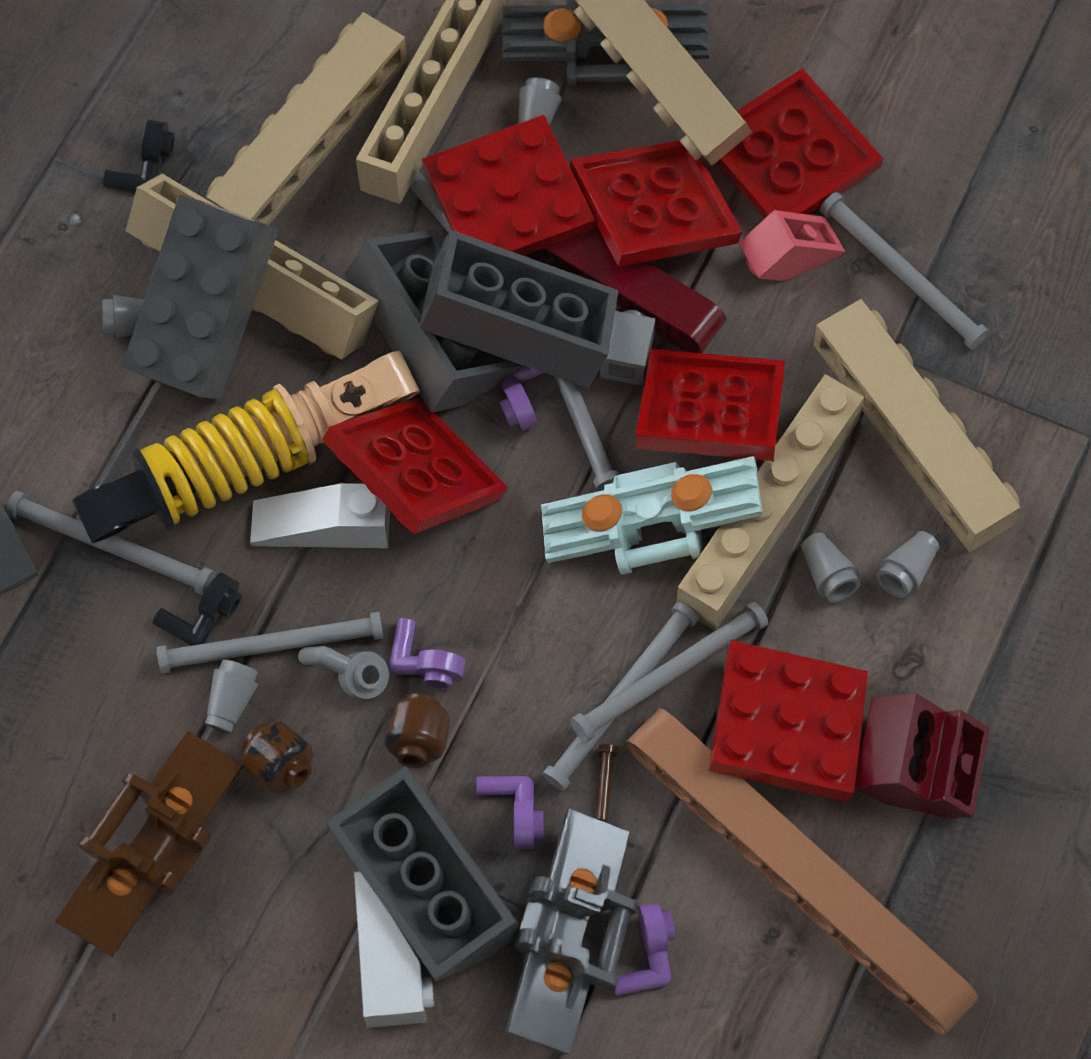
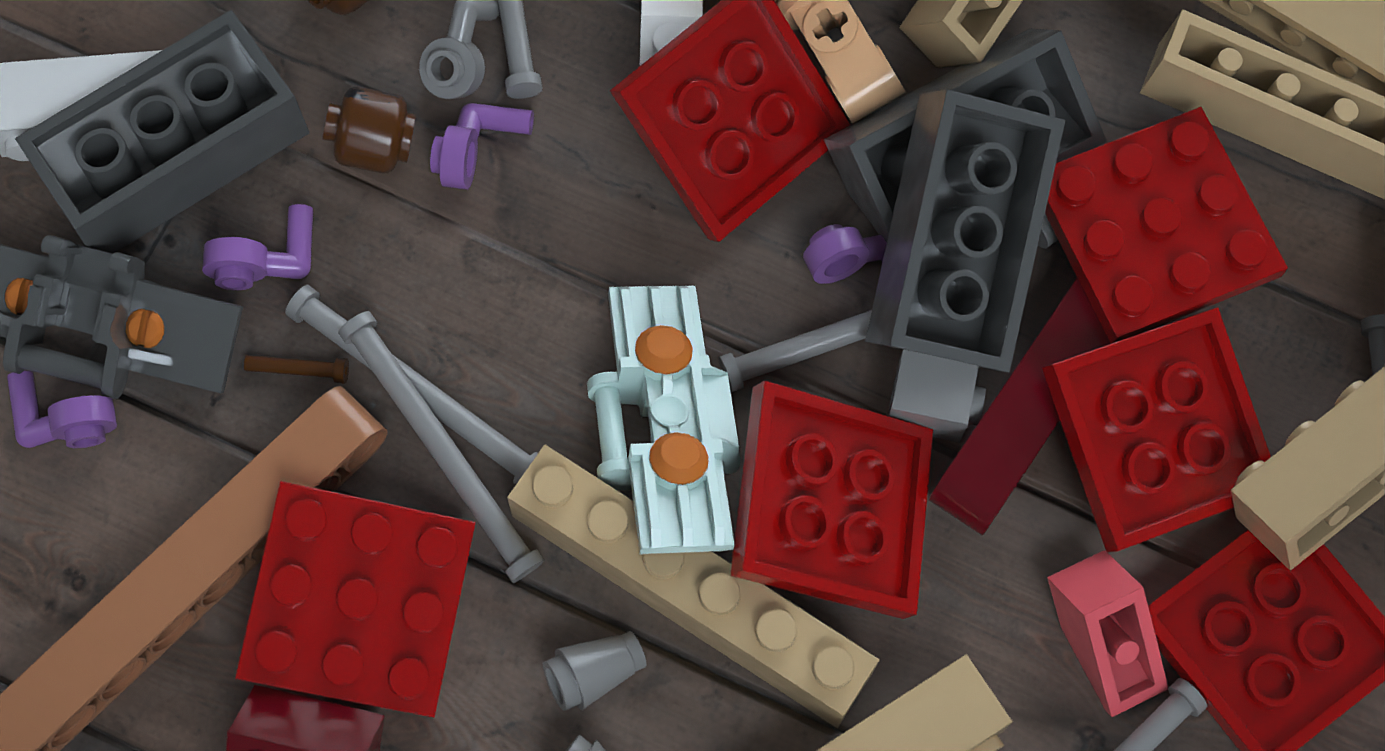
camera: 85 degrees right, 5 degrees up
(538, 98) = (1317, 278): light grey cone -> none

